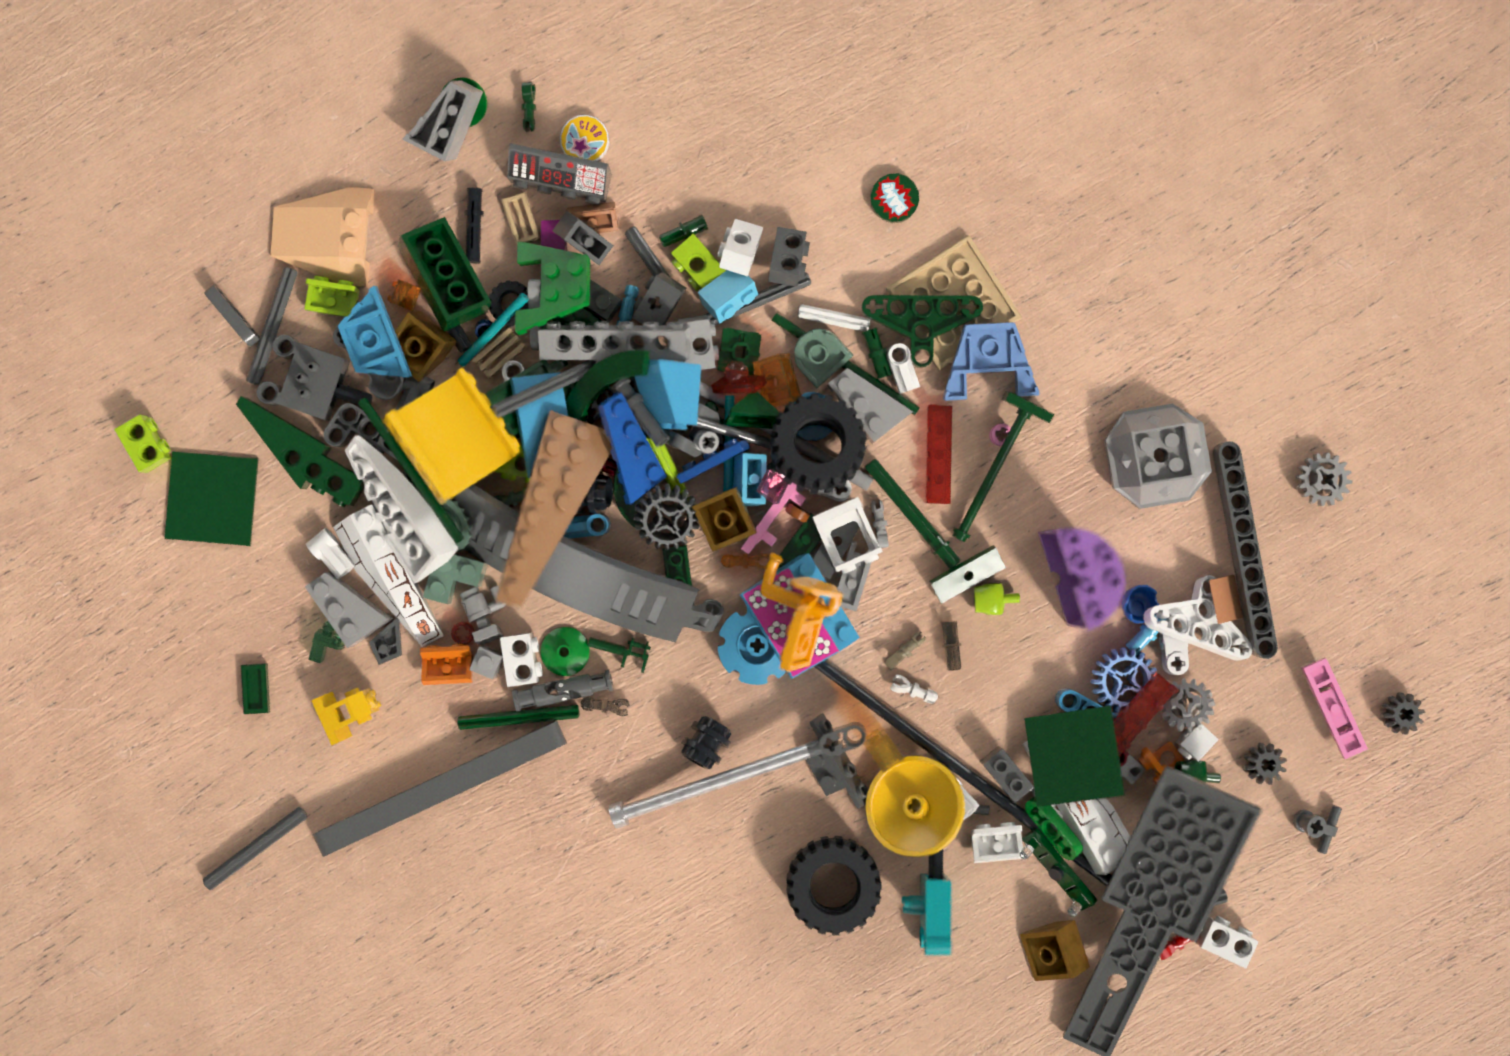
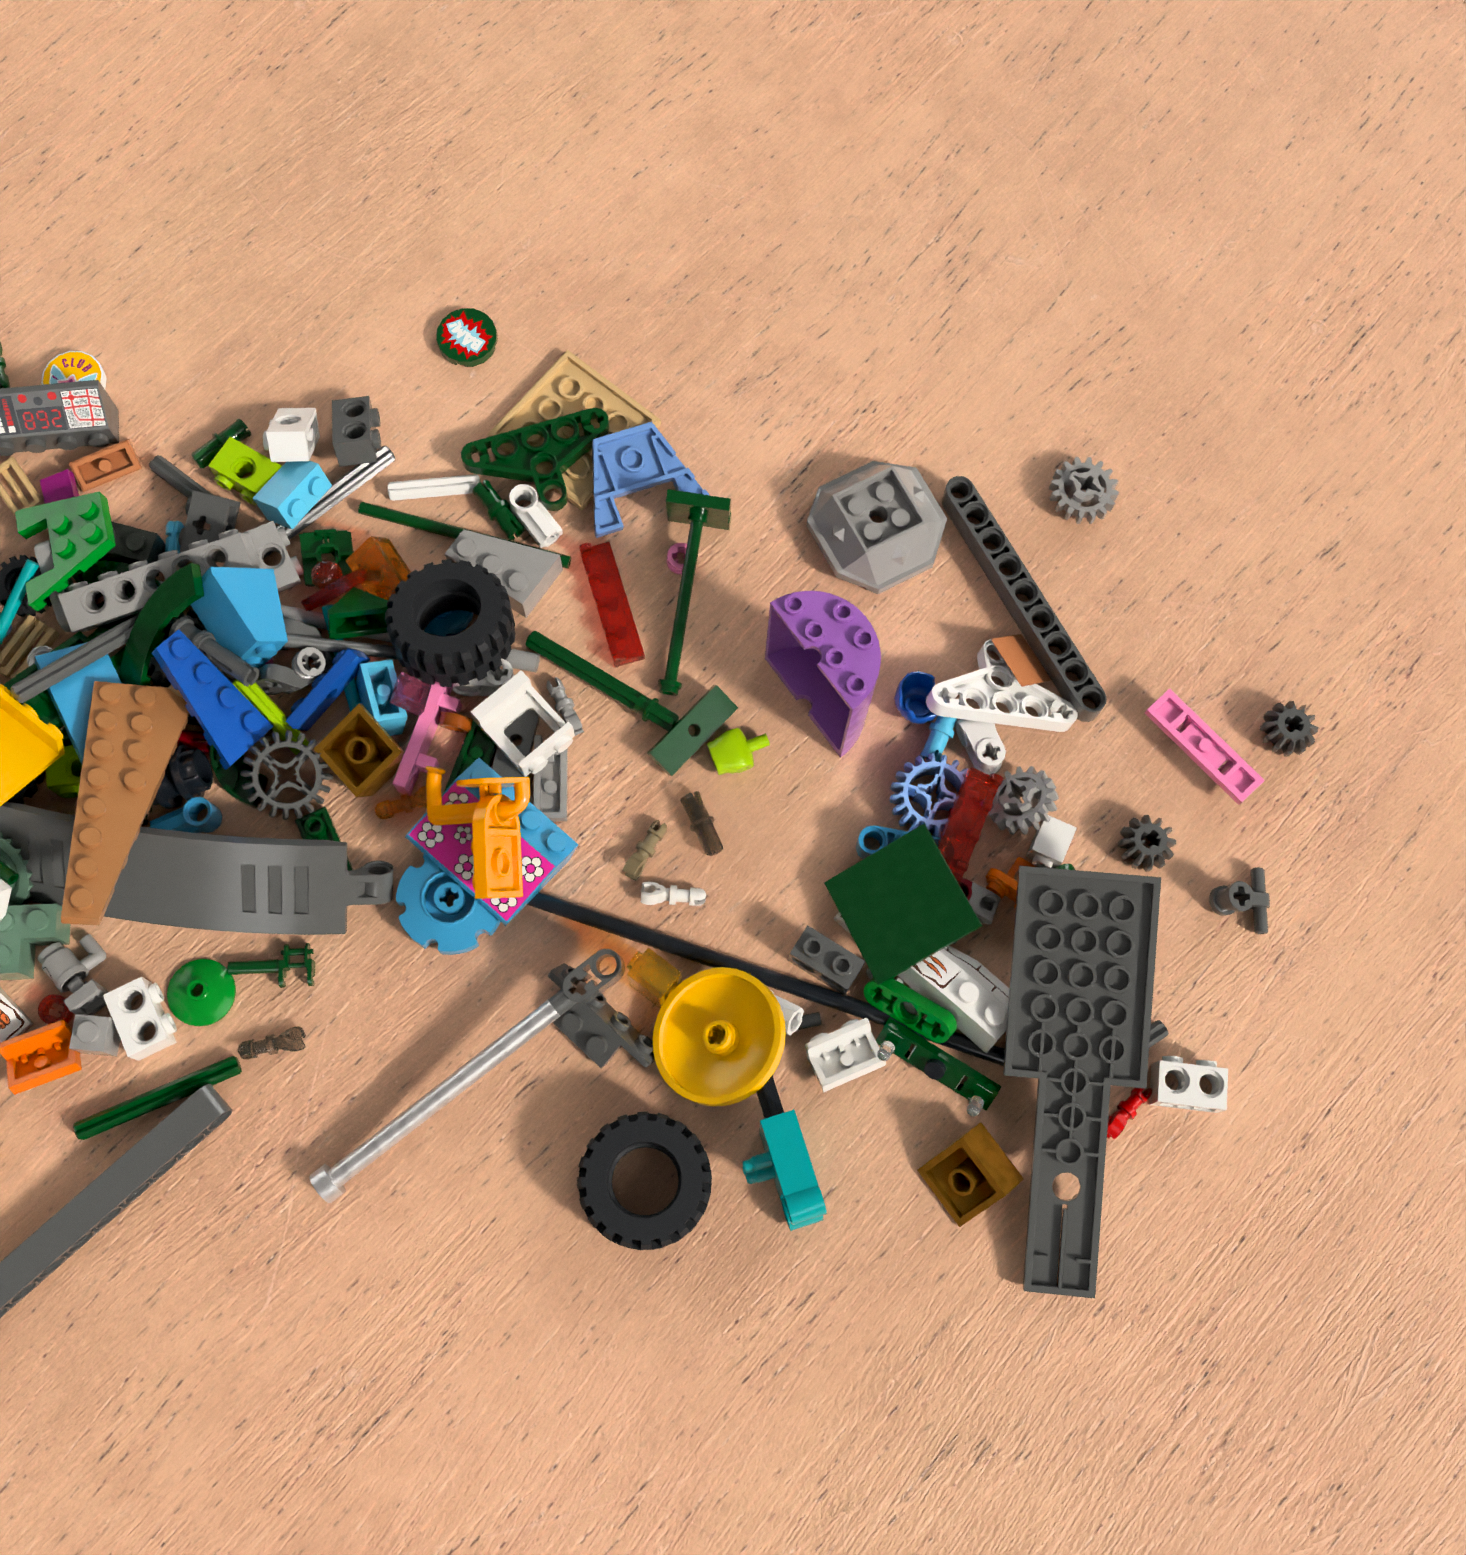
camera: 20 degrees left, 15 degrees down
(567, 689) = (204, 1044): dark grey piece -> none
(582, 238) = (89, 475): dark grey brick -> none
(706, 742) = (420, 1039): black piece -> none
(820, 355) = (428, 529): sand green tile -> none

